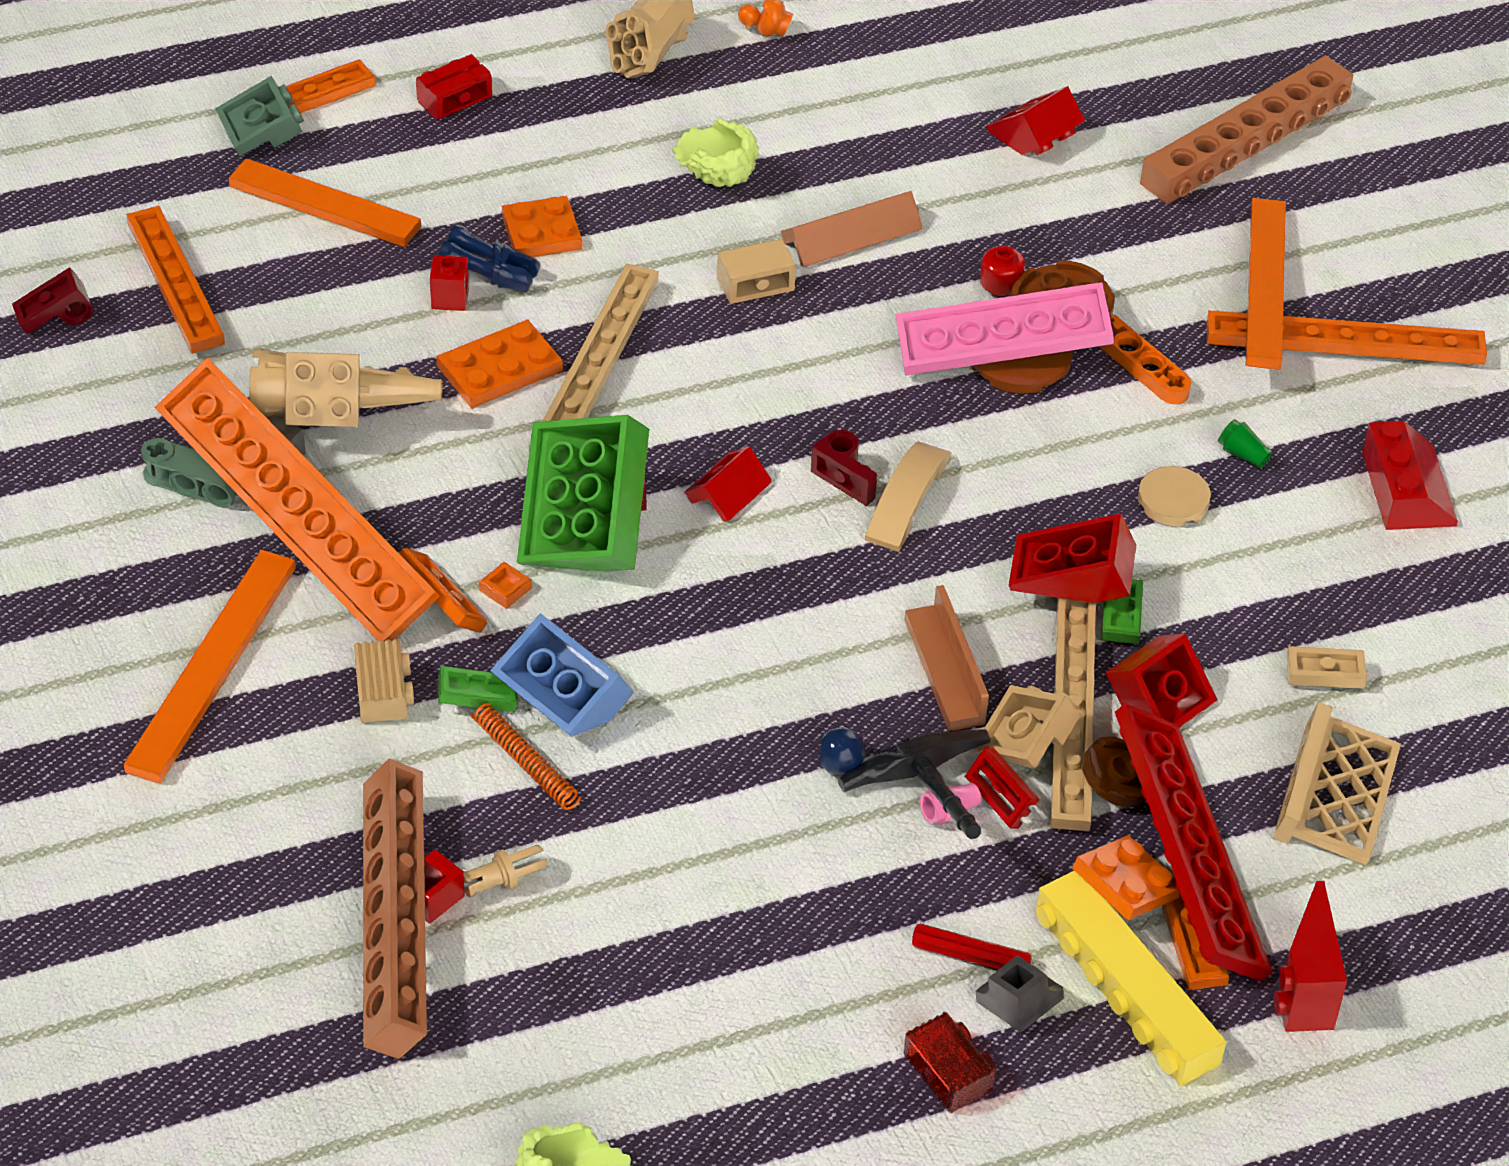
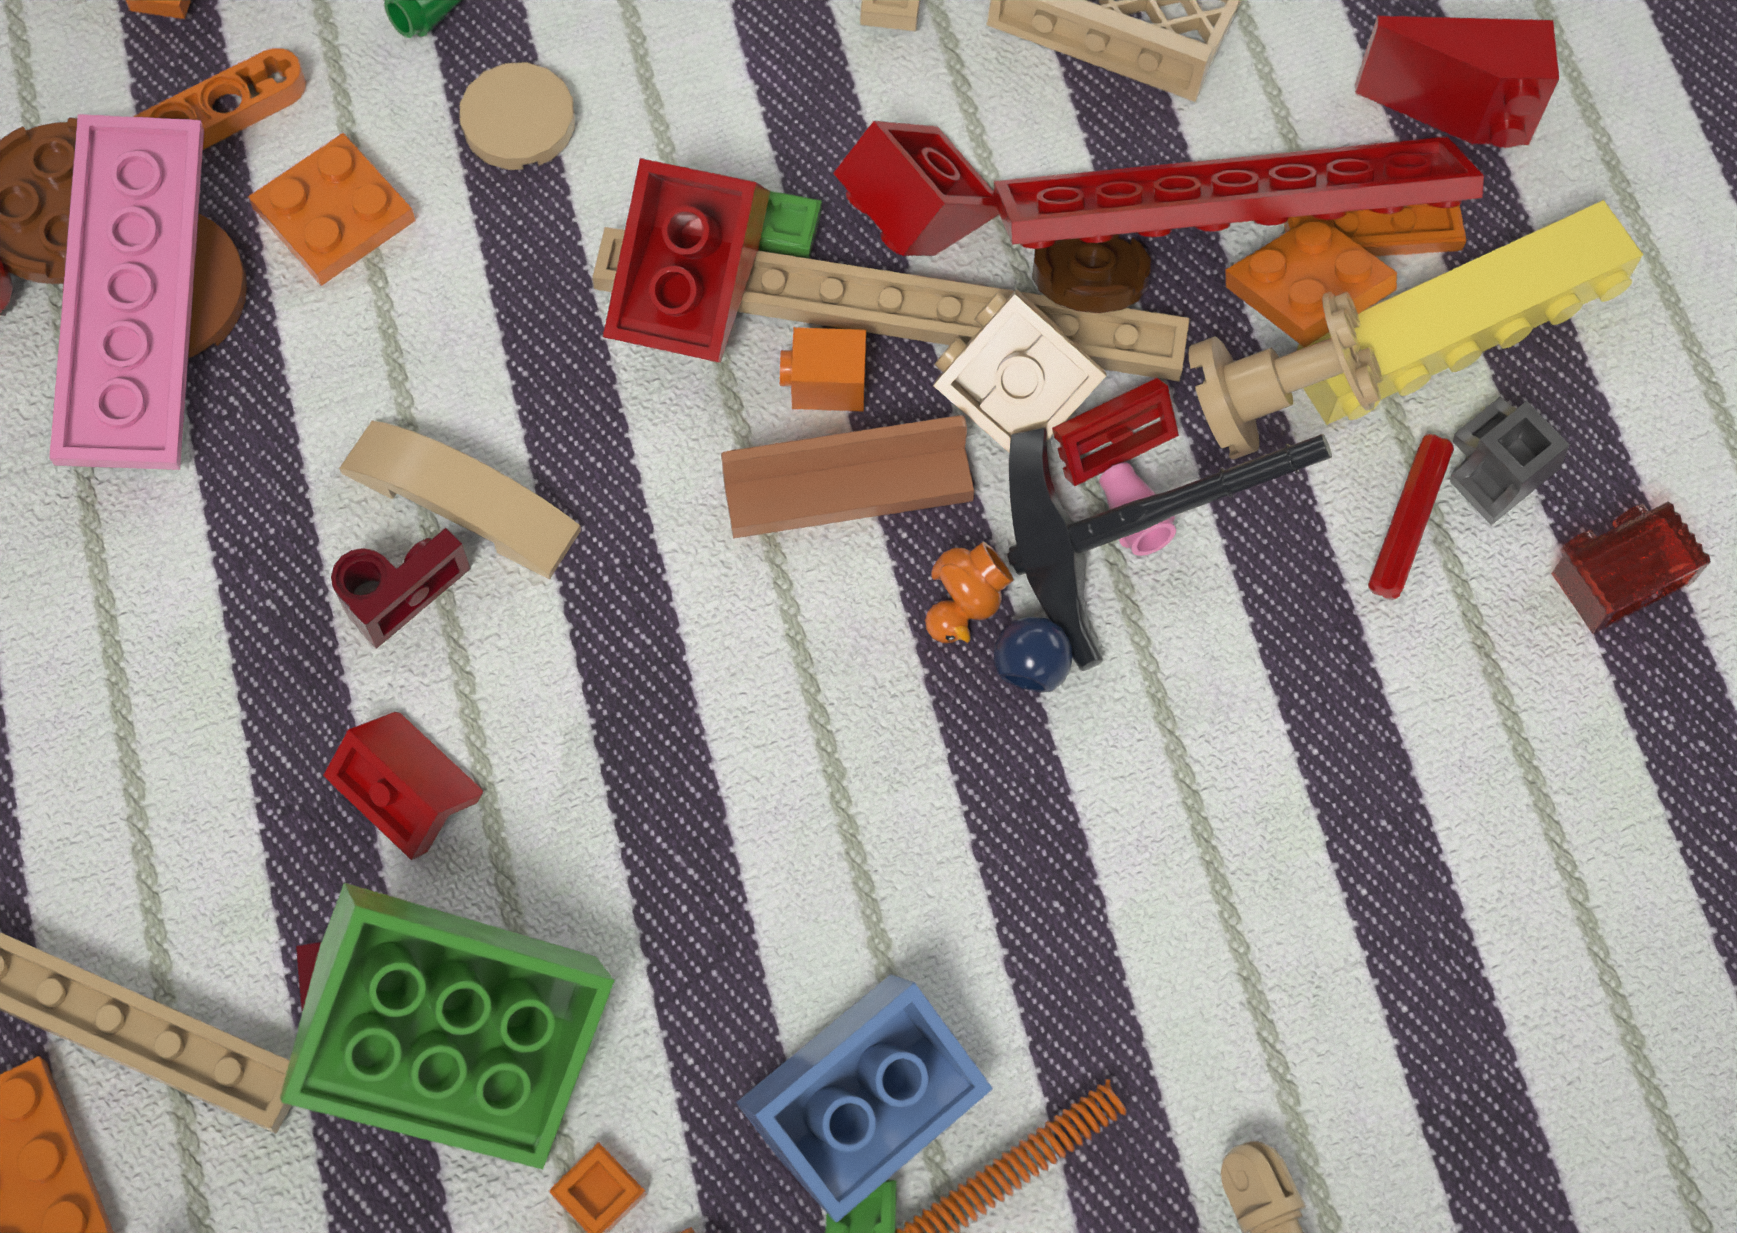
camera: 85 degrees left, 20 degrees up
(881, 719) = (974, 584): none -> orange animal
(1019, 646) = (825, 369): none -> orange brick
(1036, 839) = (1264, 383): none -> tan piece
(1089, 421) = (332, 209): none -> orange plate

